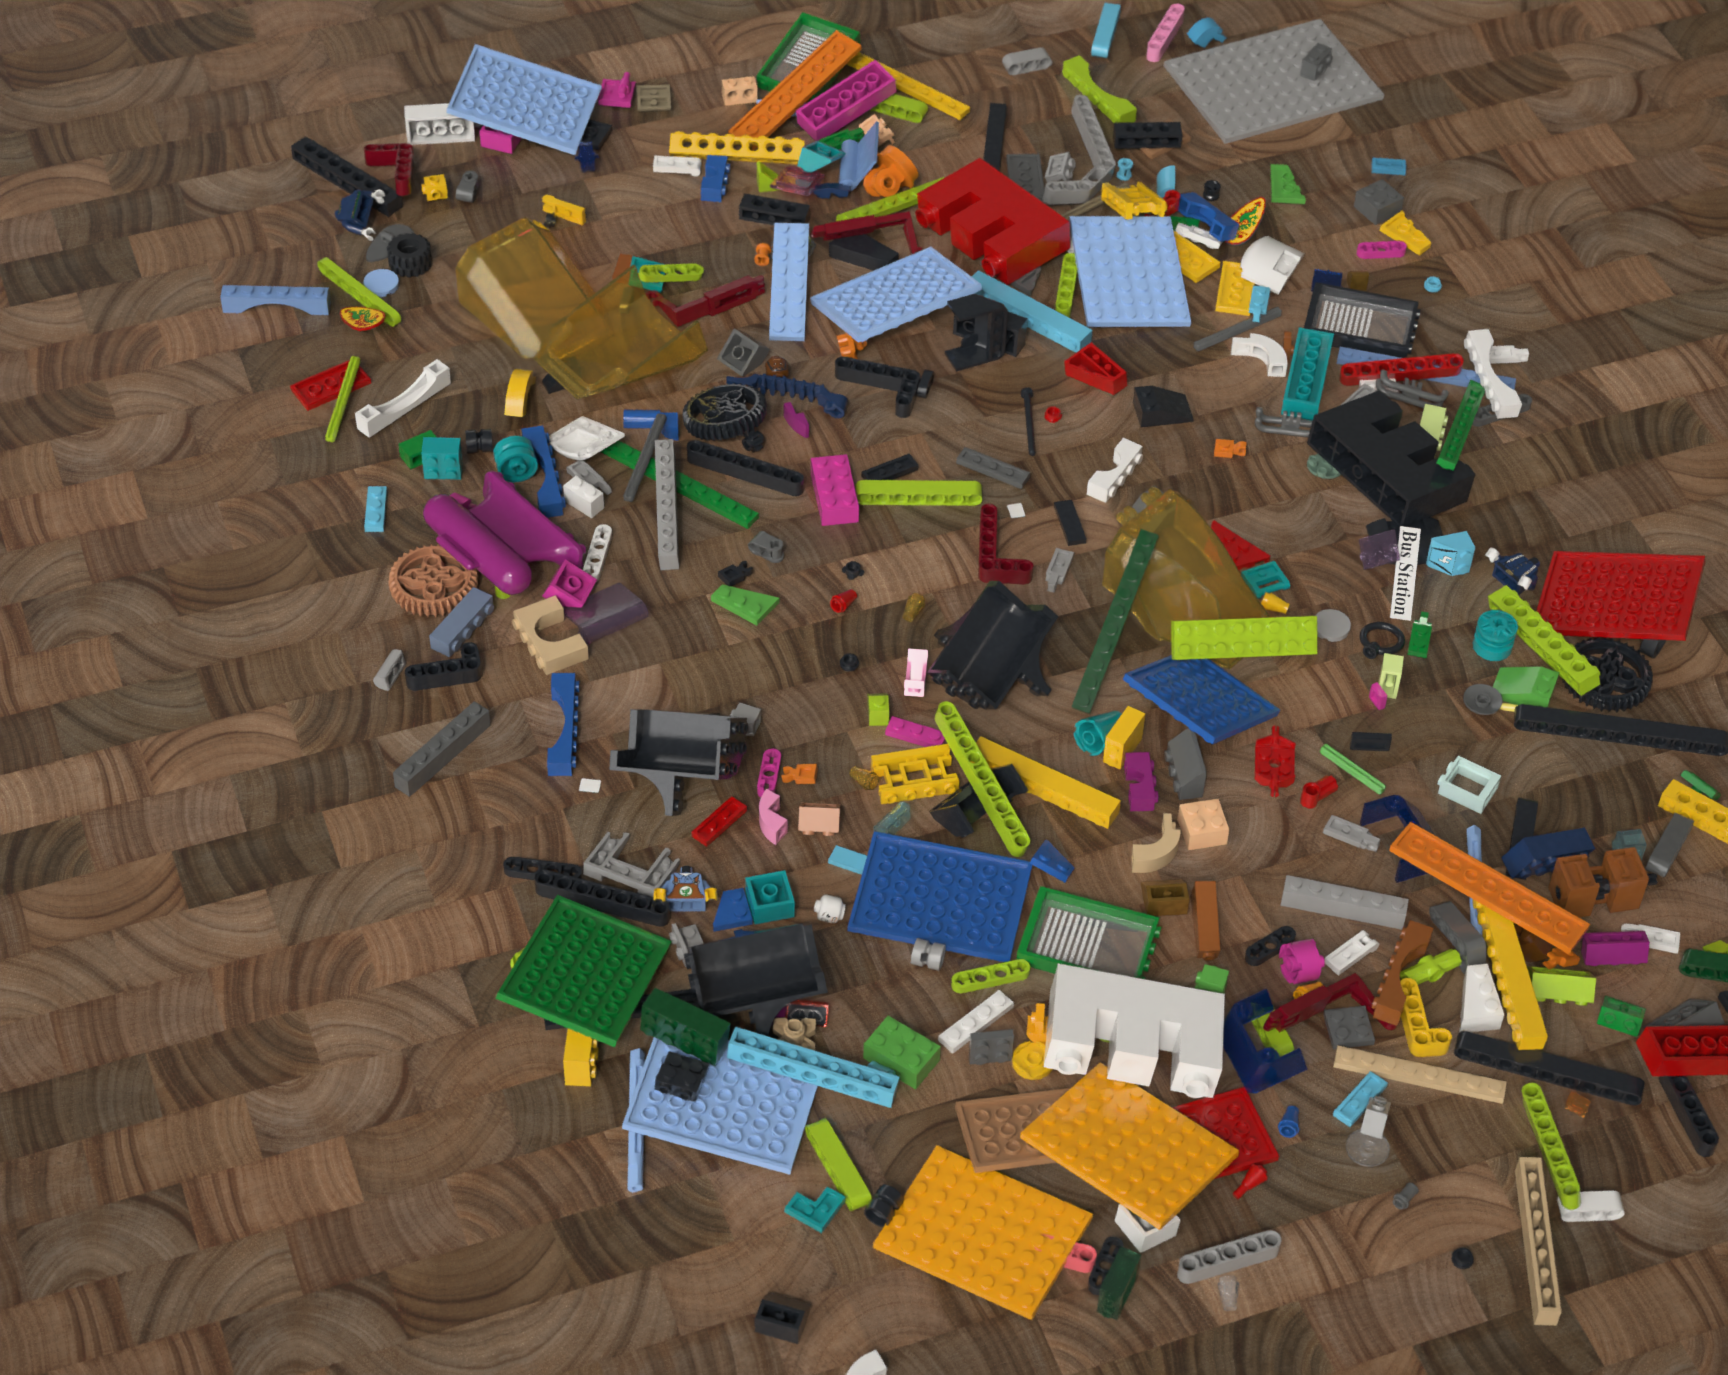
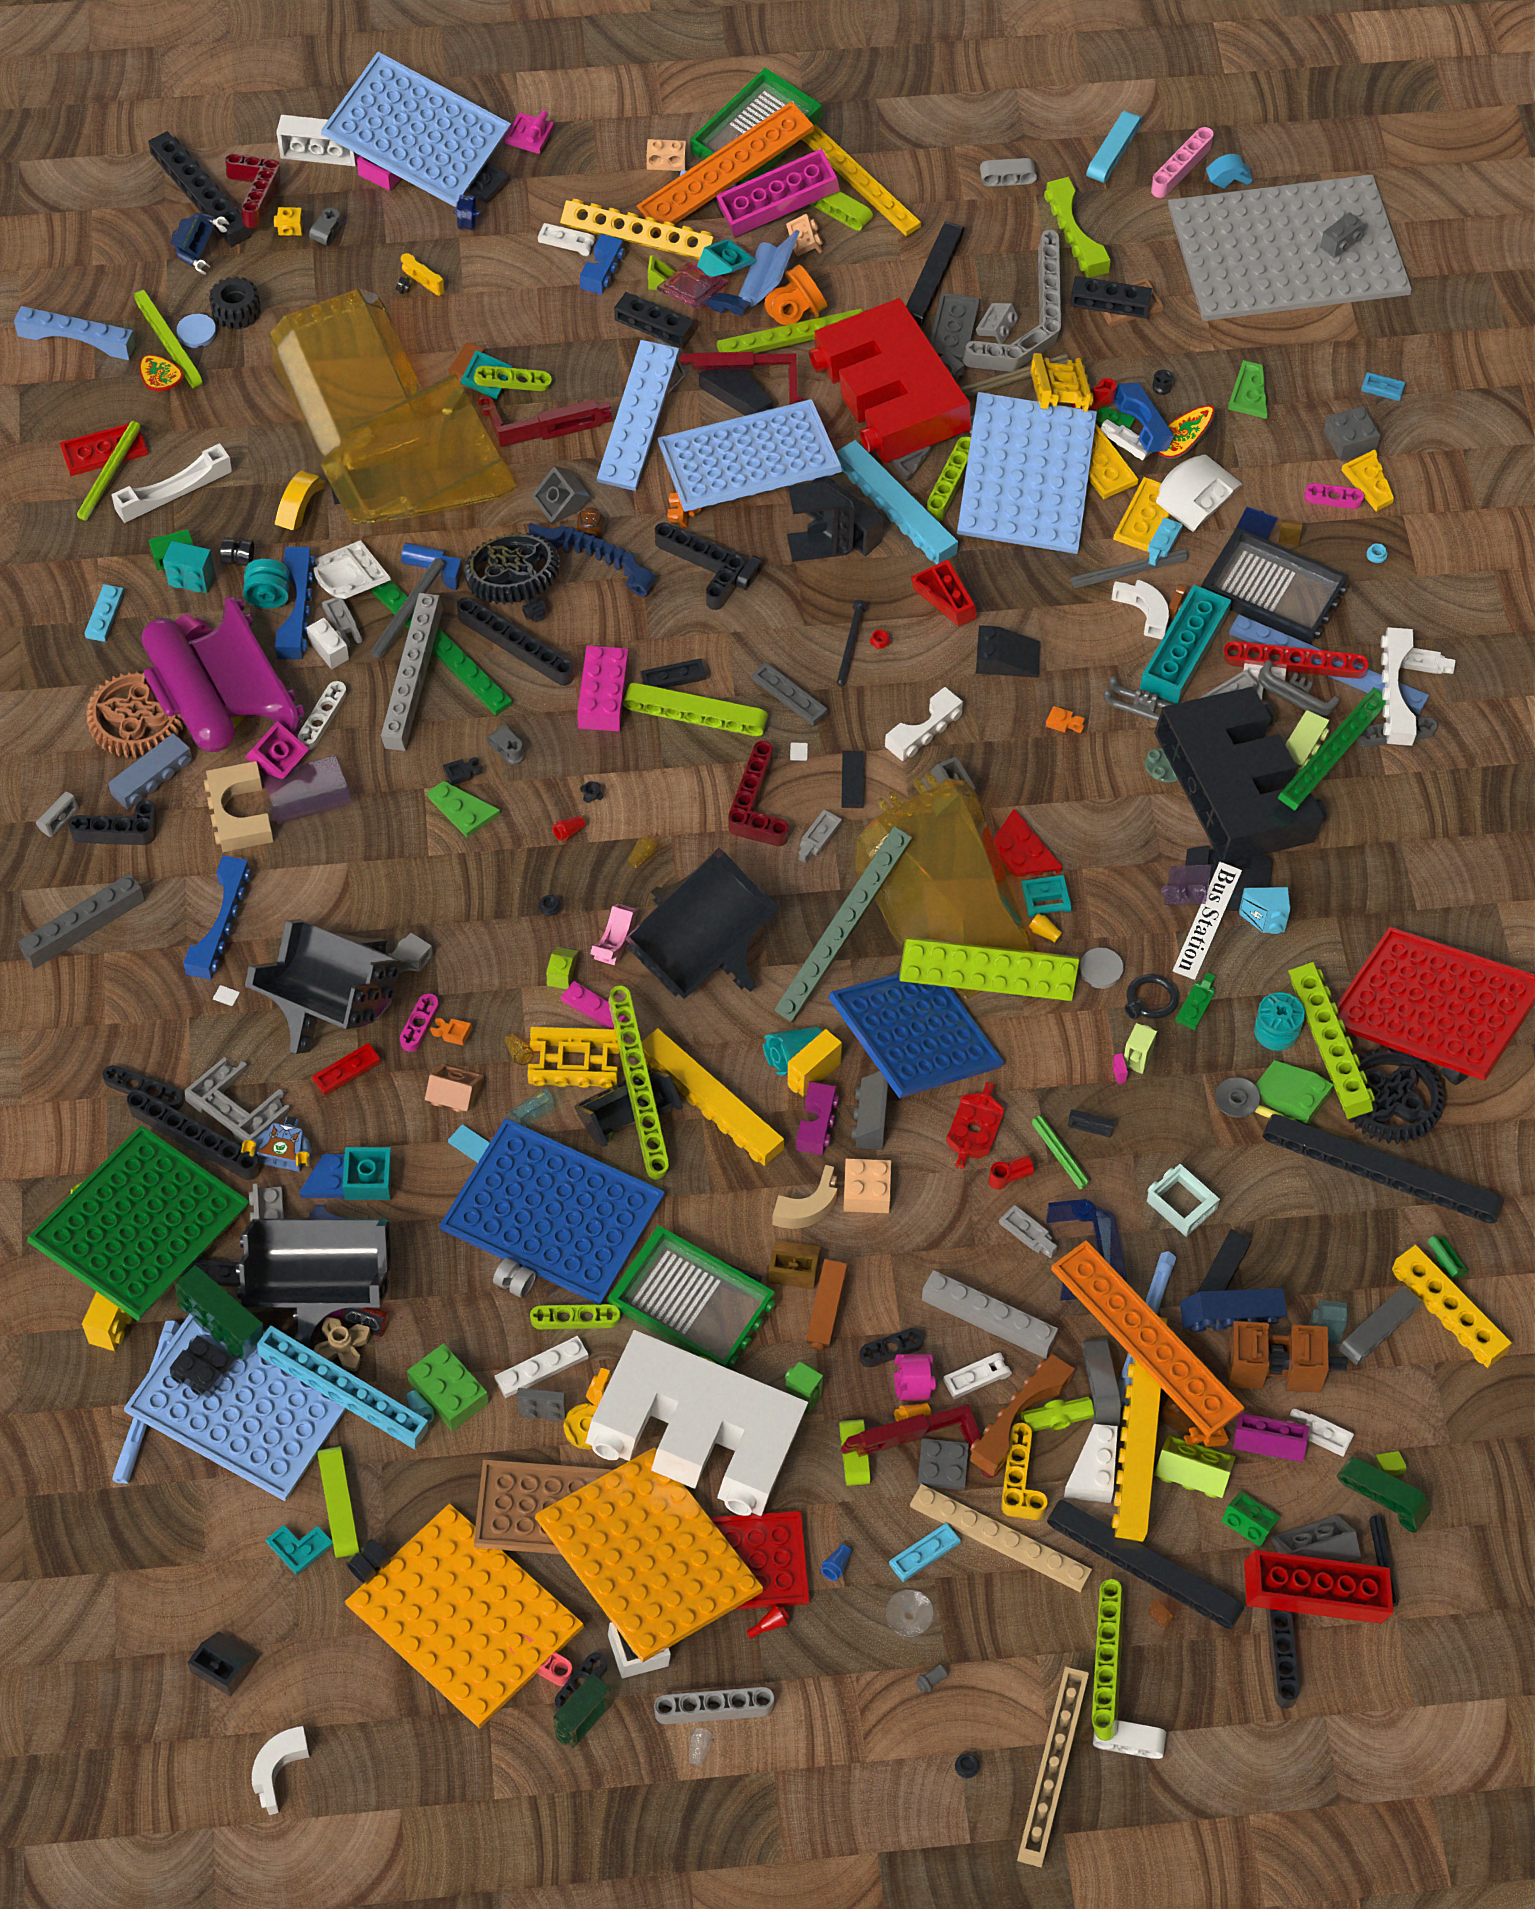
camera: 15 degrees right, 10 degrees up
(378, 248) = (225, 269): dark grey shield -> none
(653, 97) = (569, 146): dark tan slope -> none
(762, 256) = (622, 374): orange bush -> none
(771, 824) = (401, 1087): bright pink brick -> none
(796, 421) = (590, 592): magenta slope -> none
(829, 909) = (428, 1200): white head -> none
(838, 138) = (750, 240): green hinge -> none
(1052, 862) = (687, 1195): blue wing -> none
(1124, 169) = (1067, 335): medium azure bush -> none
(1165, 180) = (1112, 362): medium azure brick -> none
(1256, 1068) = (817, 1497): clear blue windscreen -> none
(1375, 1117) = (926, 1582): light grey brick -> none
(1514, 570) = (1334, 943): dark blue torso -> none

